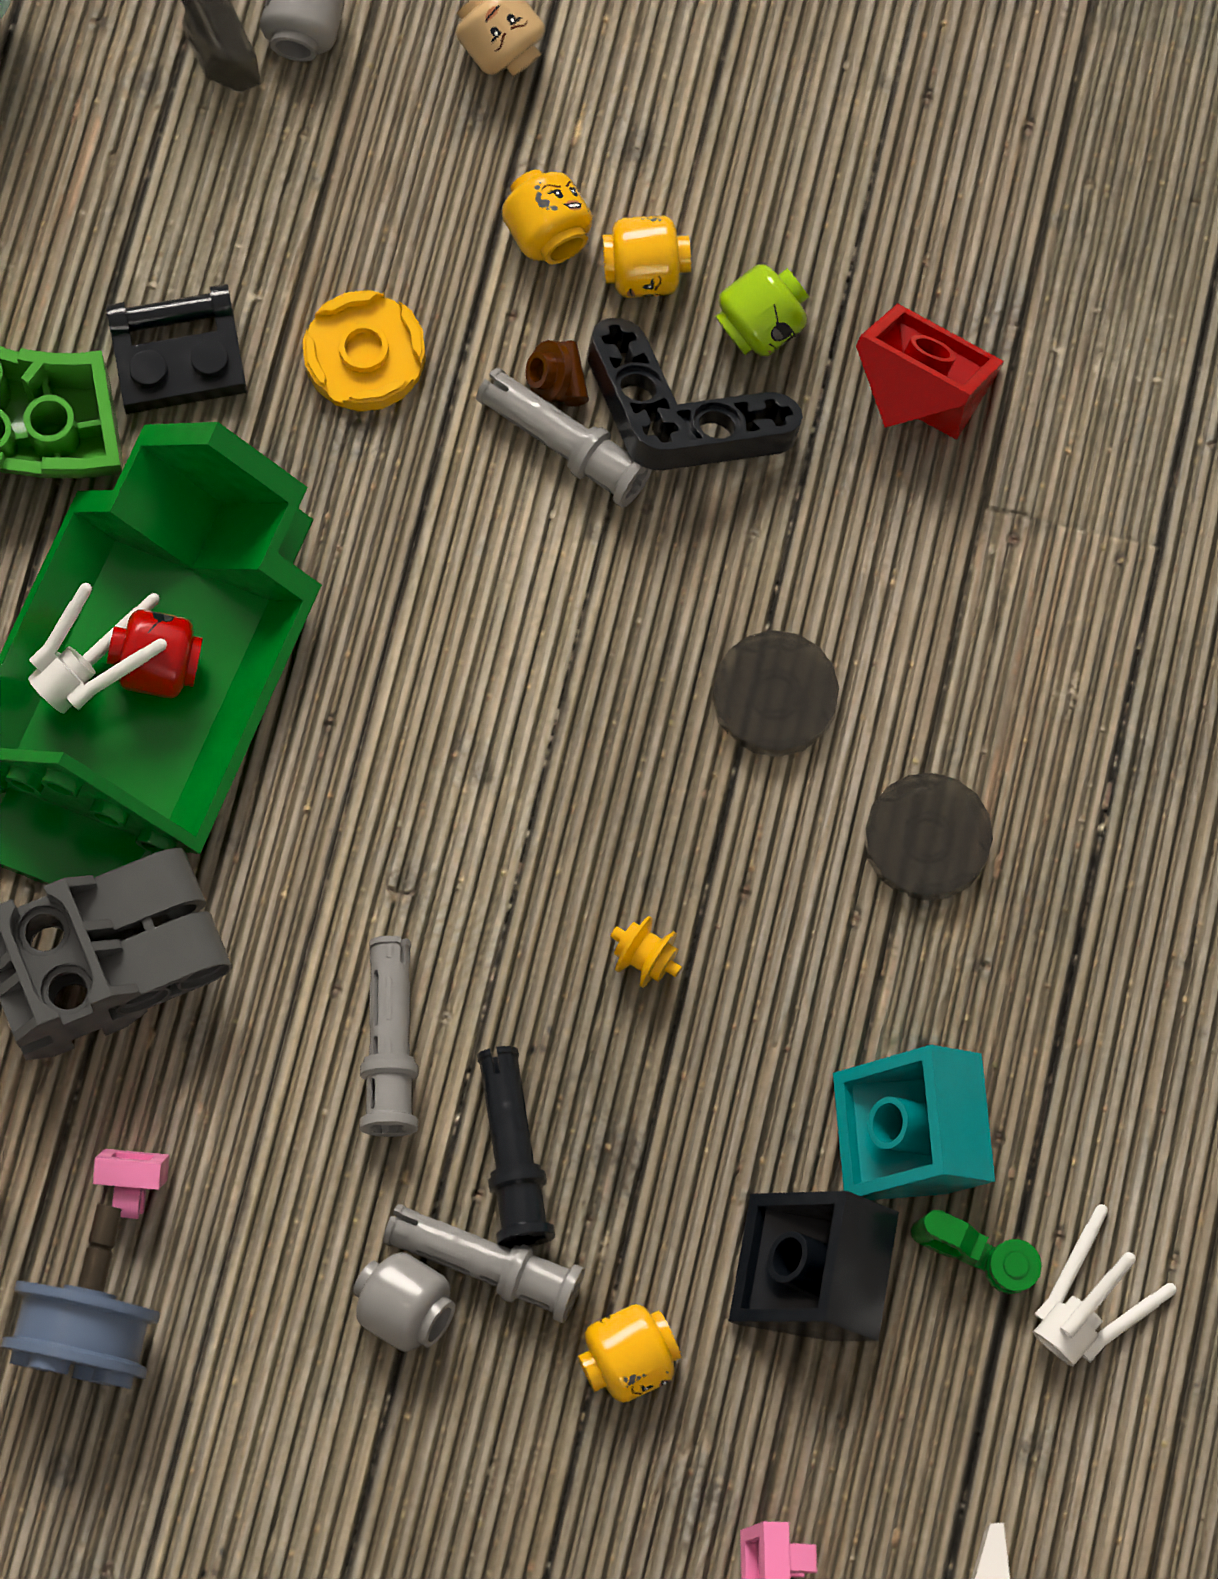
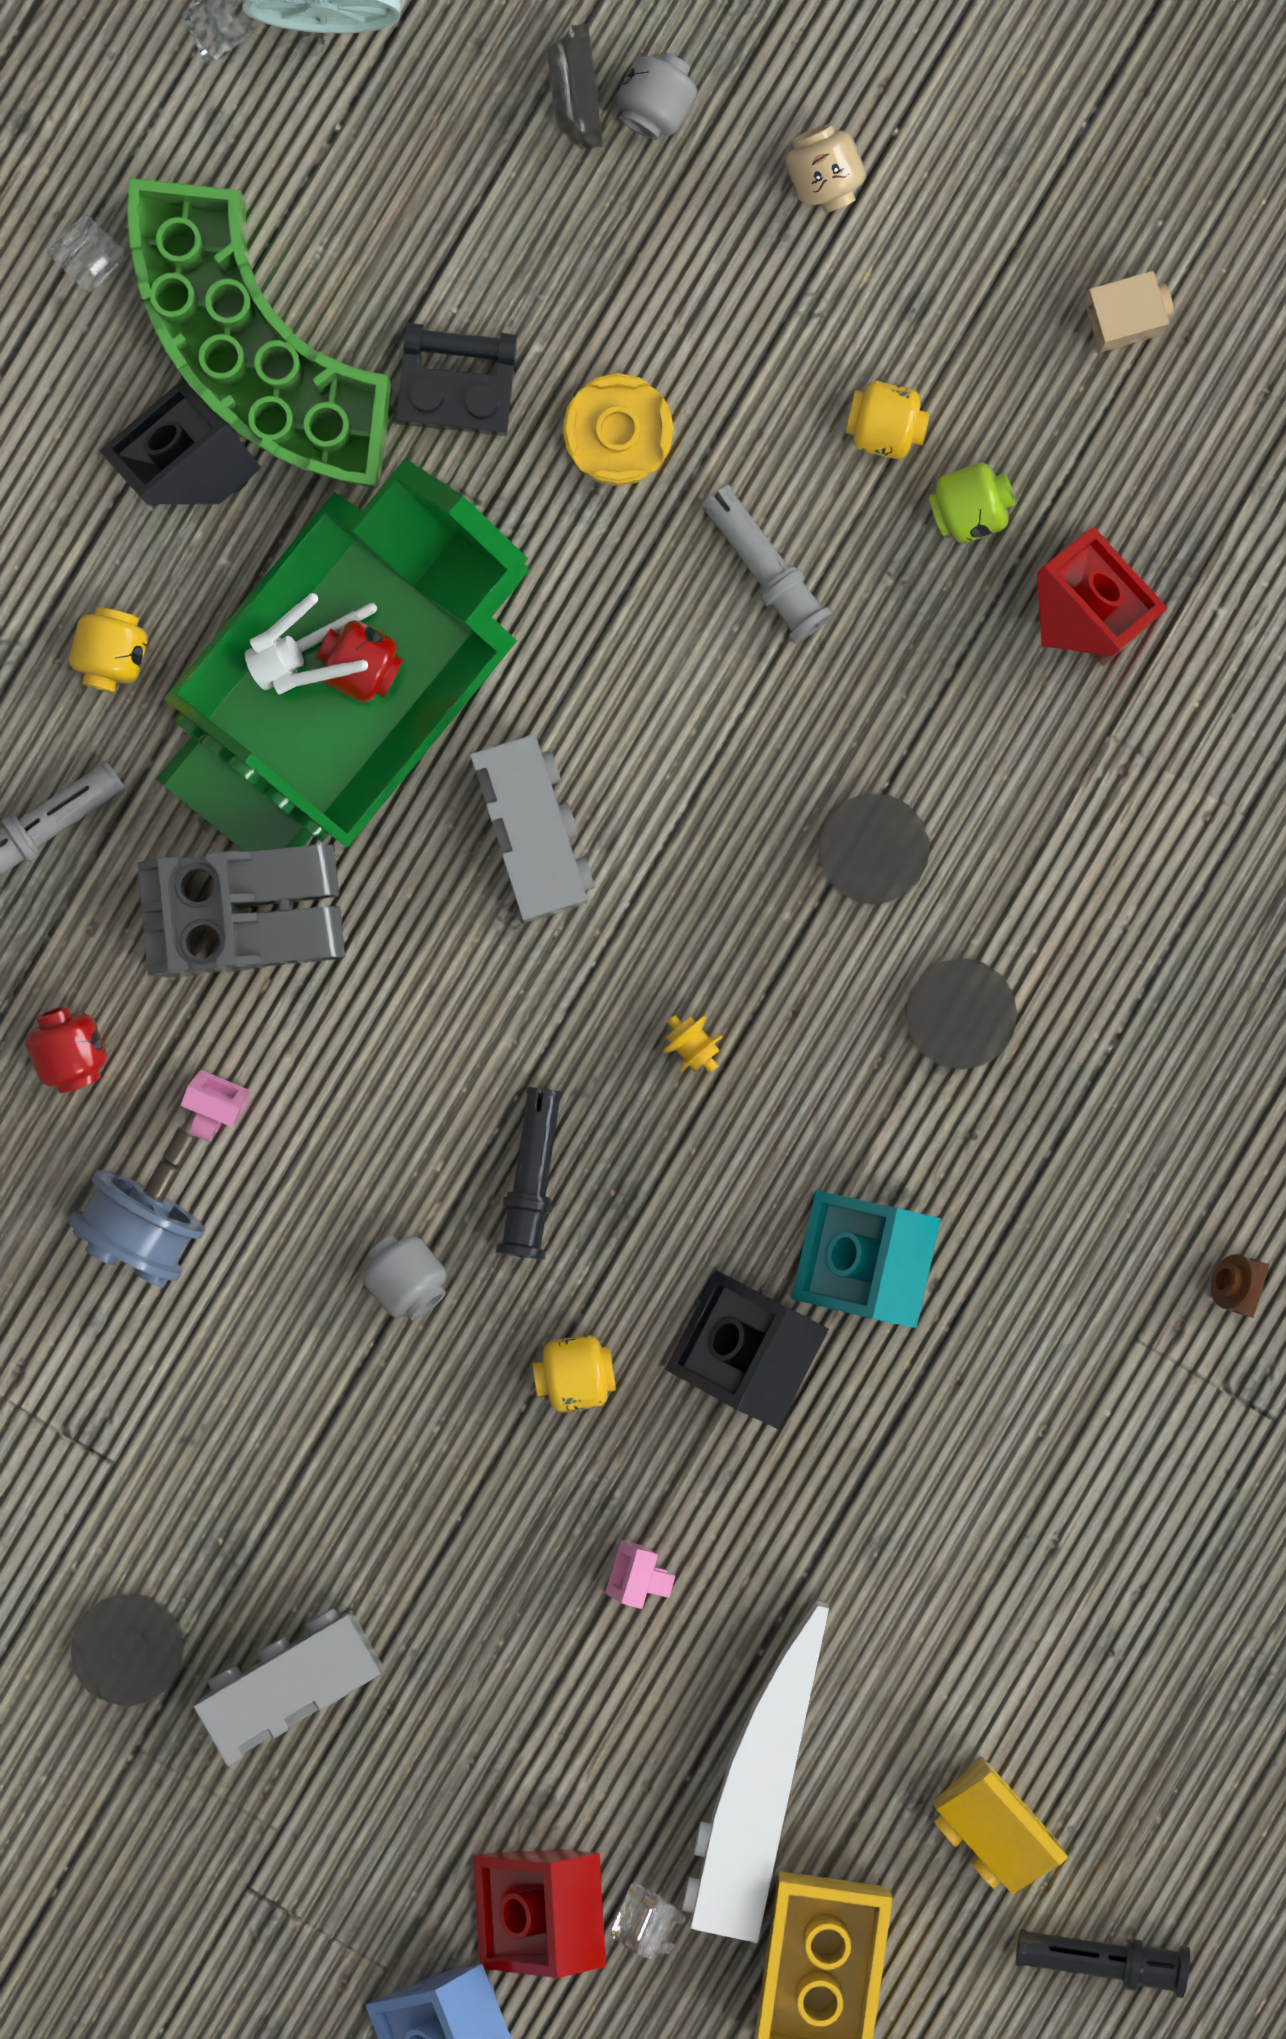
camera: 20 degrees right, 15 degrees up
(389, 1064) = (452, 1074): light grey pin -> none
(395, 770) = (532, 827): none -> light grey wedge
(513, 1271) = (503, 1278): light grey pin -> none
(547, 216) = (812, 358): yellow head -> none
(557, 373) = (777, 503): reddish brown plate -> none
(676, 427) = (867, 588): black beam -> none
(860, 80) = (1128, 311): none -> tan brick
(1008, 1266) = (905, 1395): green piece -> none
(1071, 1326) = (940, 1463): white plant -> none

